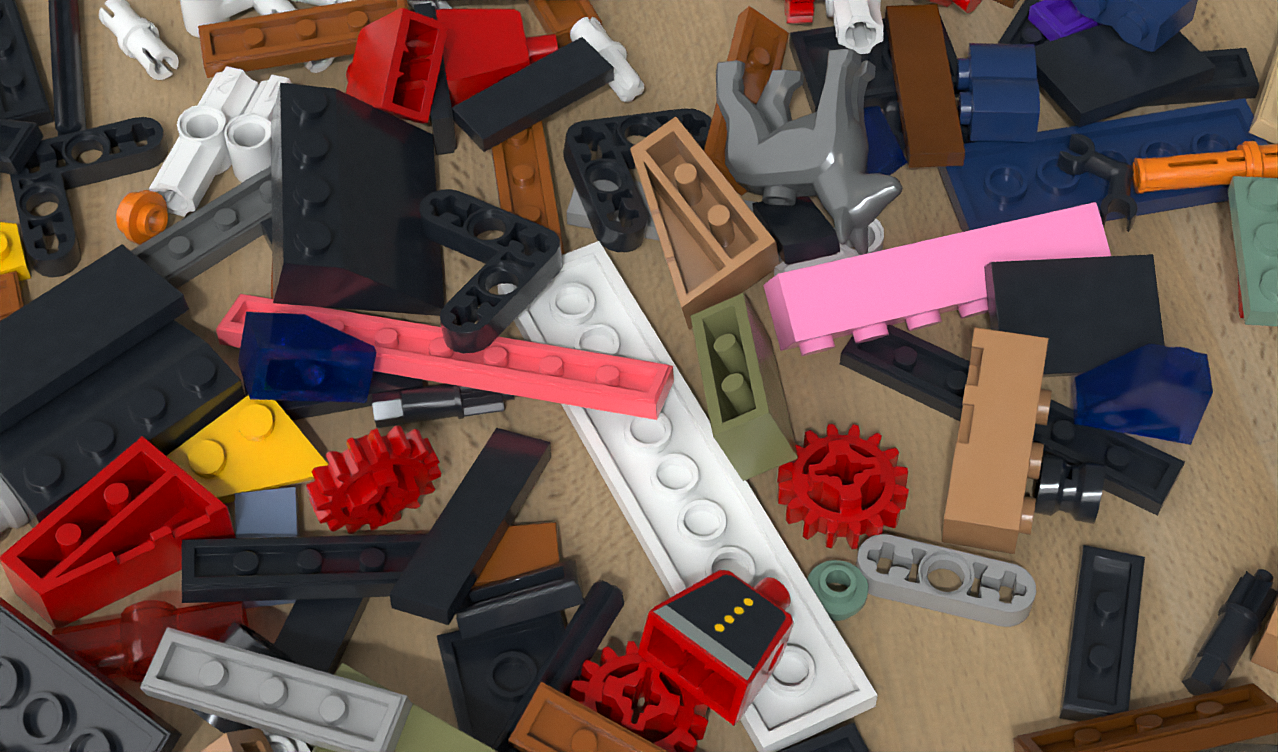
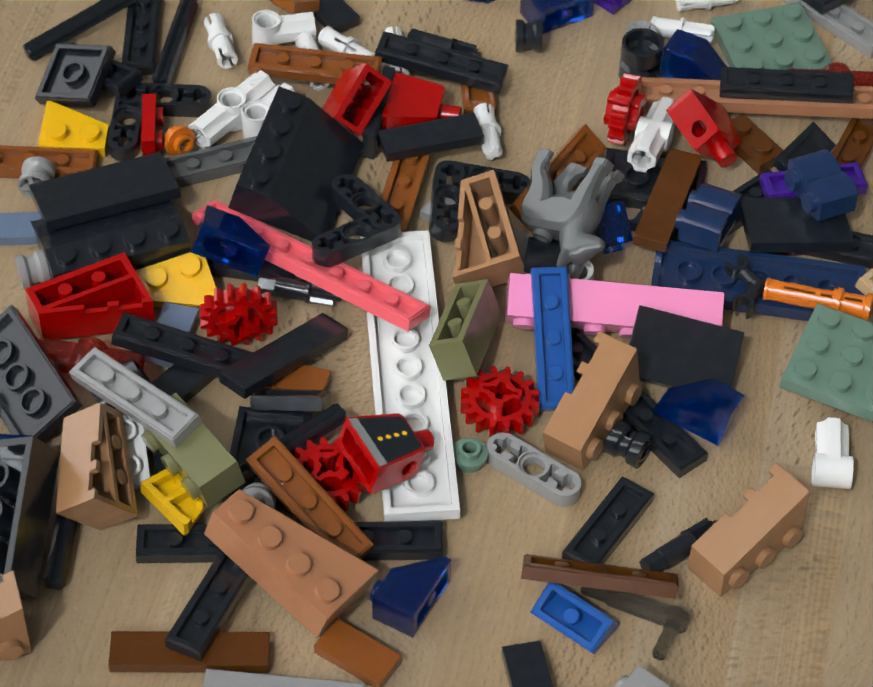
camera: 20 degrees right, 5 degrees down
(84, 193) = (151, 119): none -> red plate
(880, 355) = (552, 335): none -> blue tile

